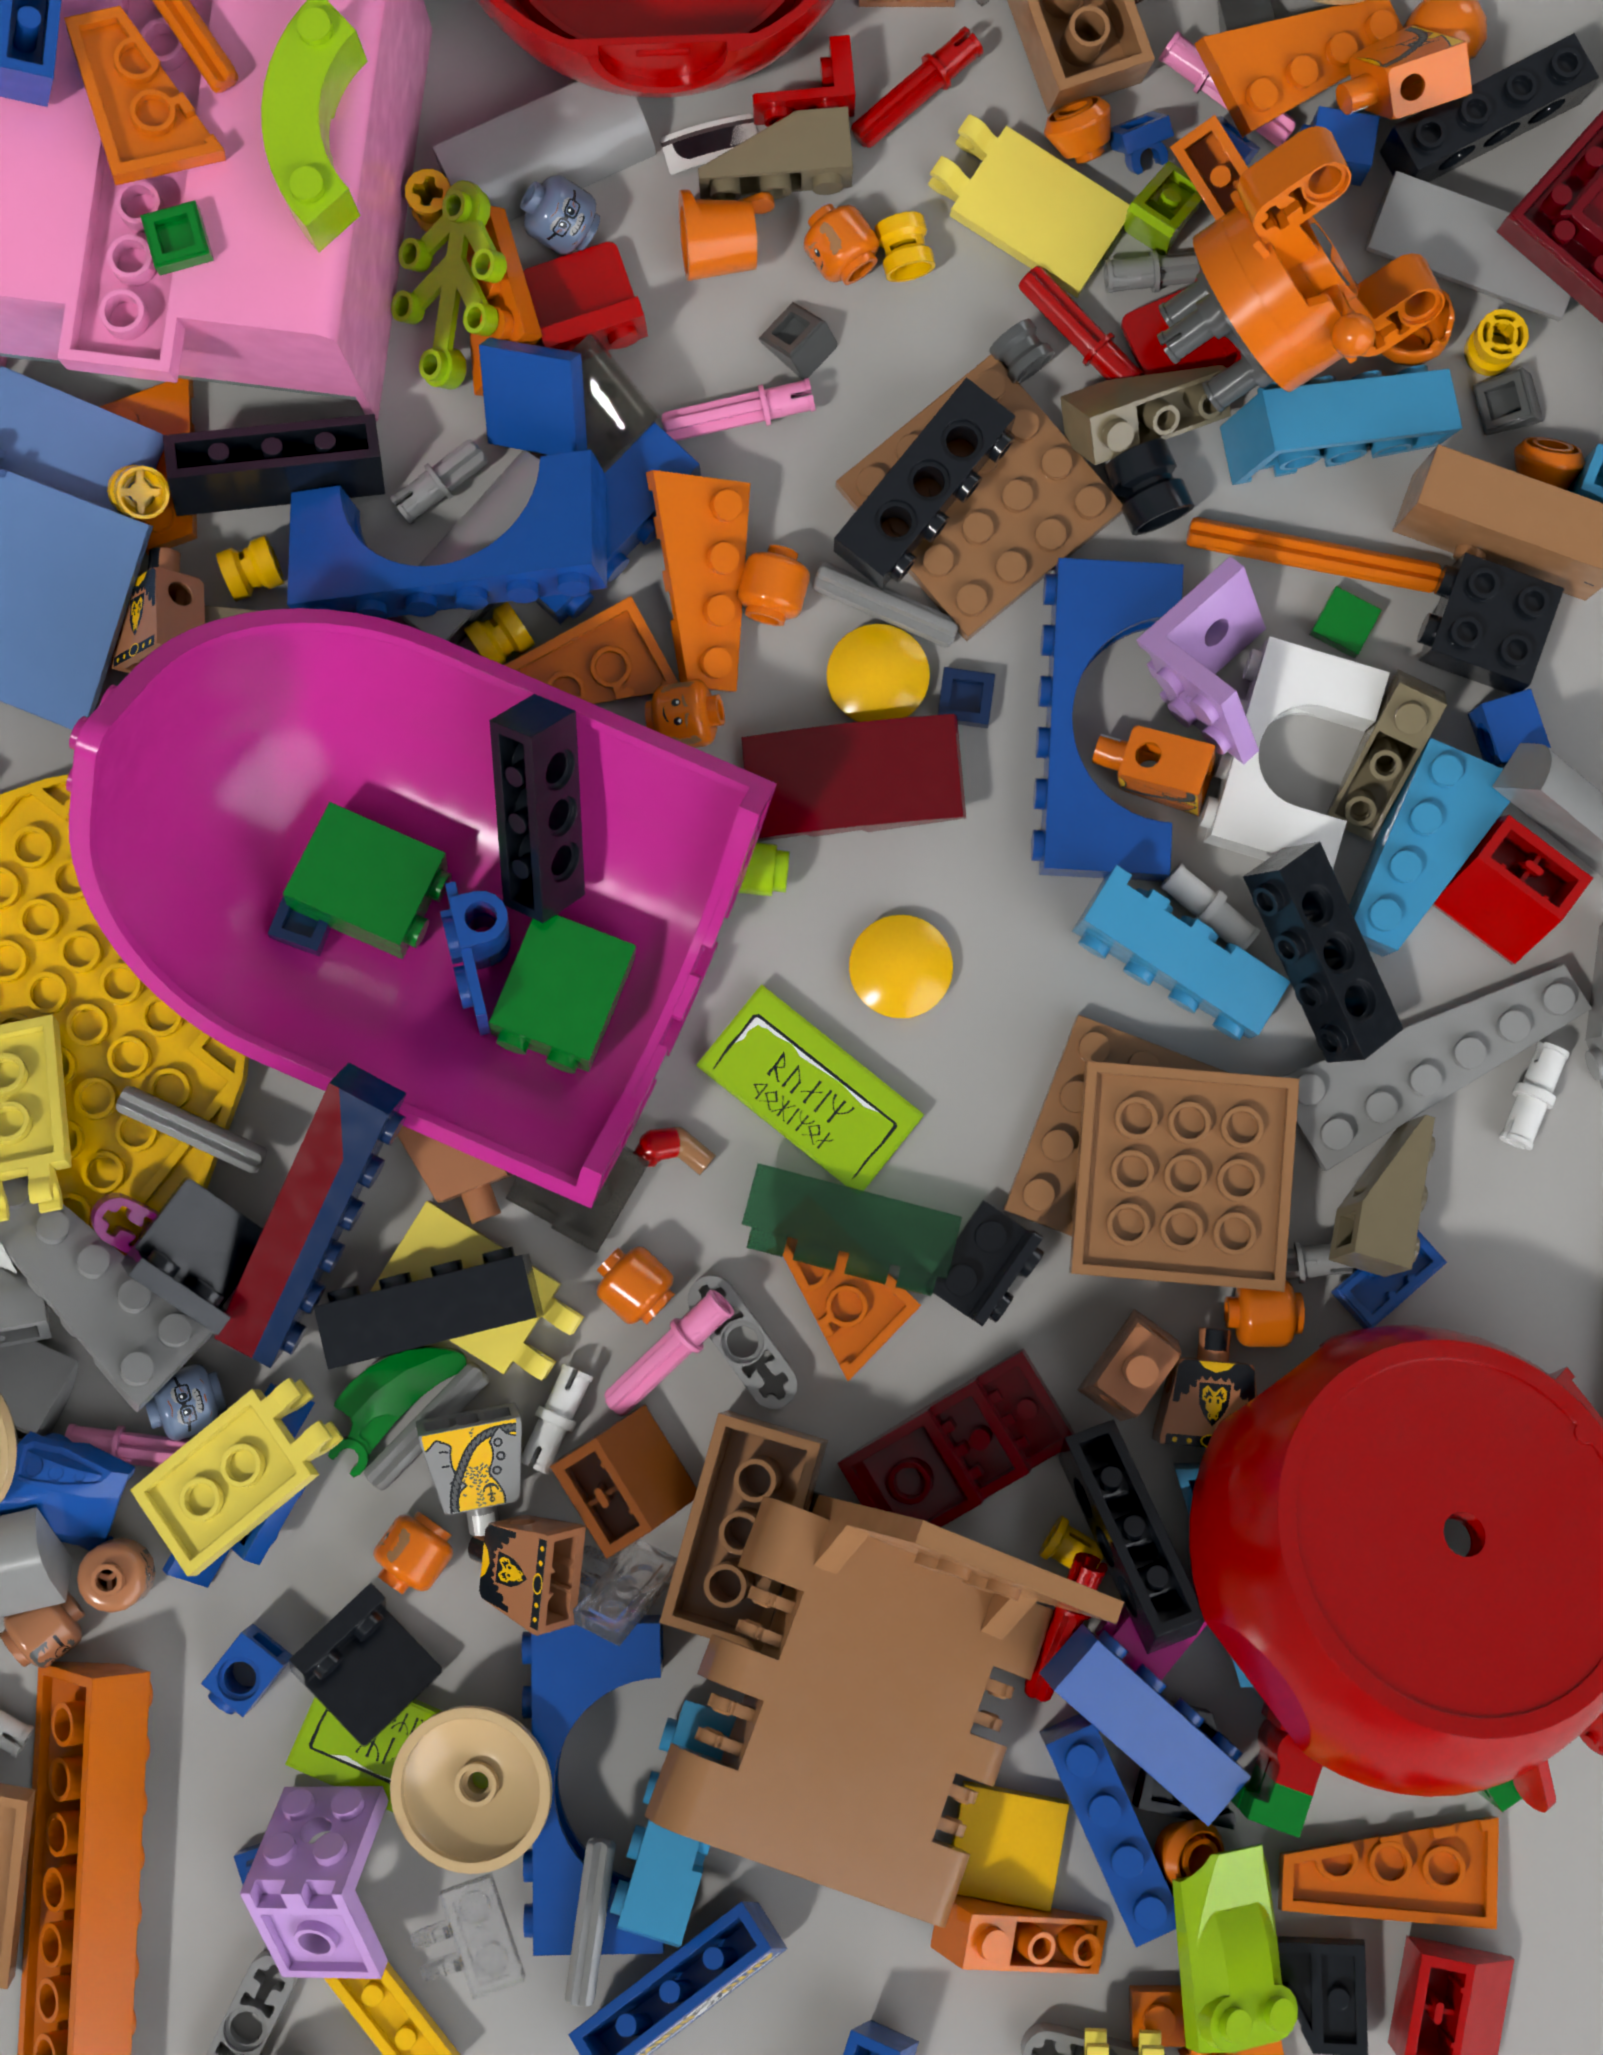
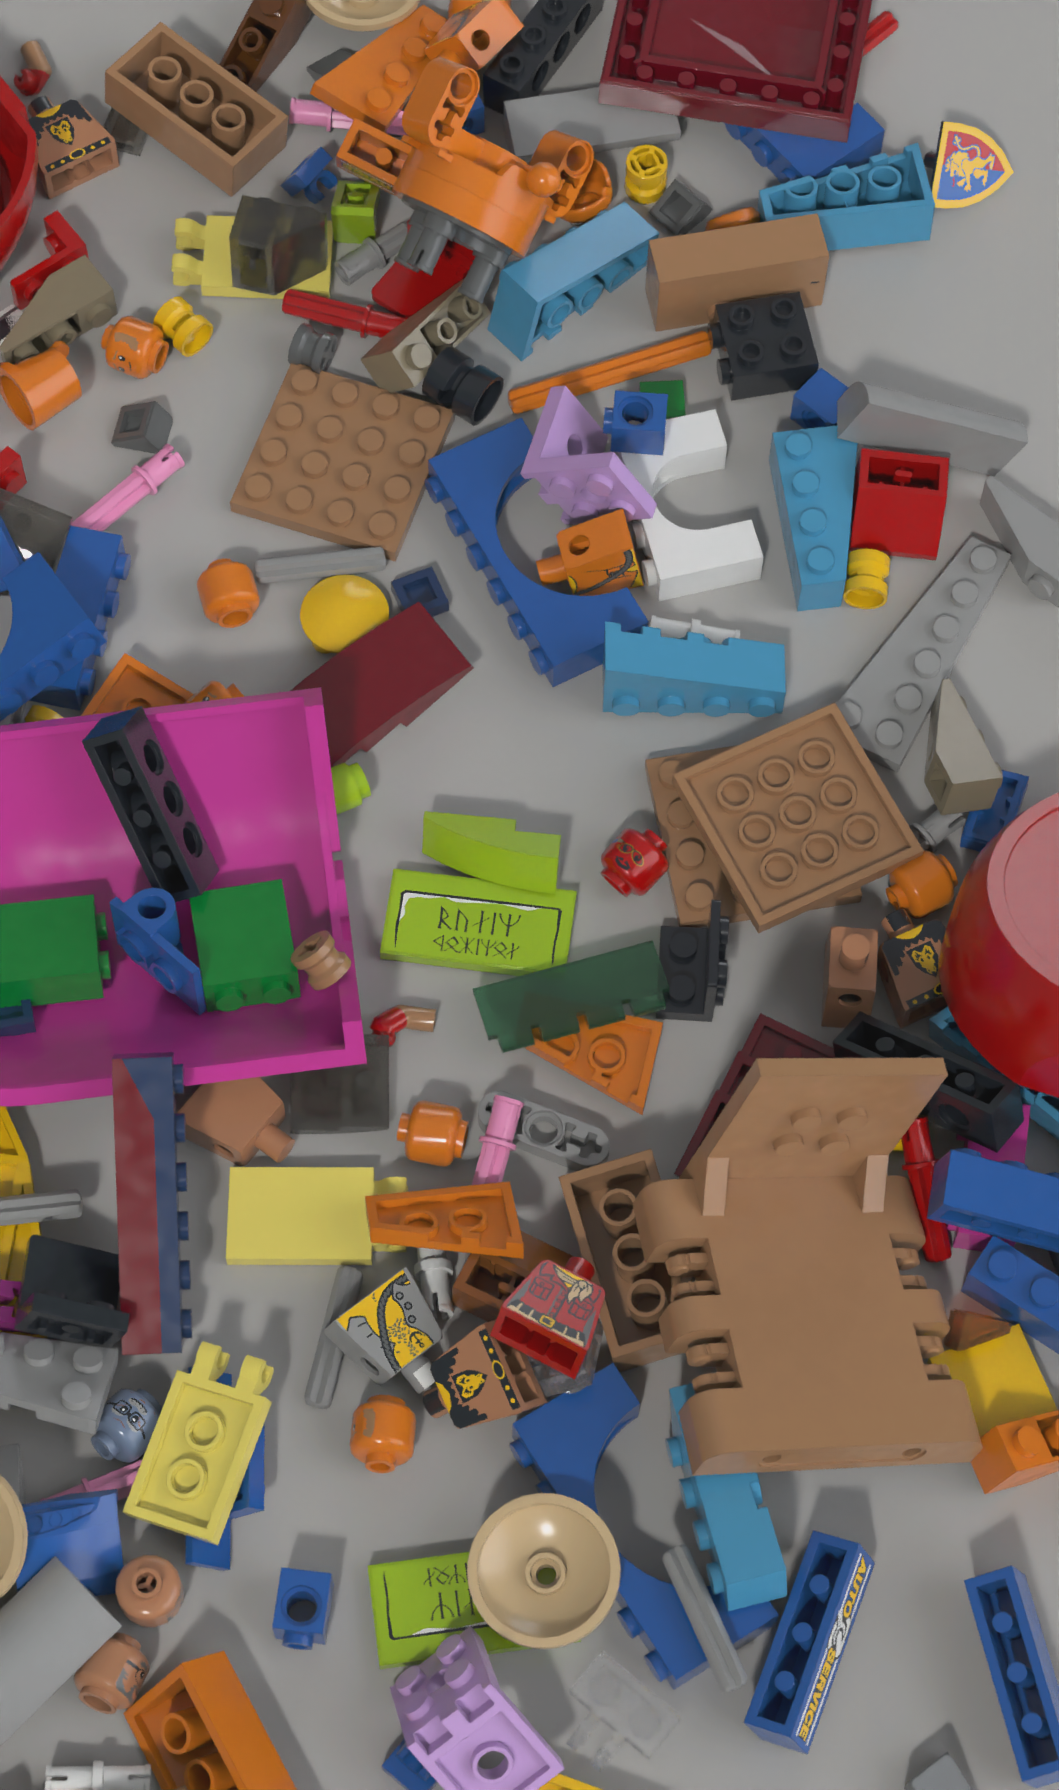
camera: 30 degrees left, 20 degrees down
(364, 1666) = (395, 1540): black bracket -> none
(387, 1391) = (286, 1328): green piece -> none
(429, 1309) = (282, 1235): black brick -> none
(588, 1396) = (449, 1219): none -> orange wing
(616, 1064) = (321, 960): none -> medium nougat wheel
(620, 1568) = (553, 1314): none -> red torso
(704, 558) = (163, 592): orange wing -> none
(867, 1029) = (493, 850): none -> lime slope
(900, 966) = (493, 790): yellow dish -> none
(917, 87) = (133, 209): red axle -> none
(965, 415) = (301, 402): black brick -> none
(998, 1120) = (634, 862): none -> red head
(1023, 1788) = (972, 1329): none -> clear orange slope
(1046, 214) = (276, 245): none -> clear smoke slope
(1080, 128) = (263, 181): orange cone -> none
(1317, 642) = (641, 407): none -> blue brick
(1323, 953) = (794, 610): black brick -> none
(1387, 754) = (751, 466): dark tan slope -> none
(1425, 949) = (866, 579): none -> yellow wheel
(1534, 1095) = (1012, 633): white pin -> none

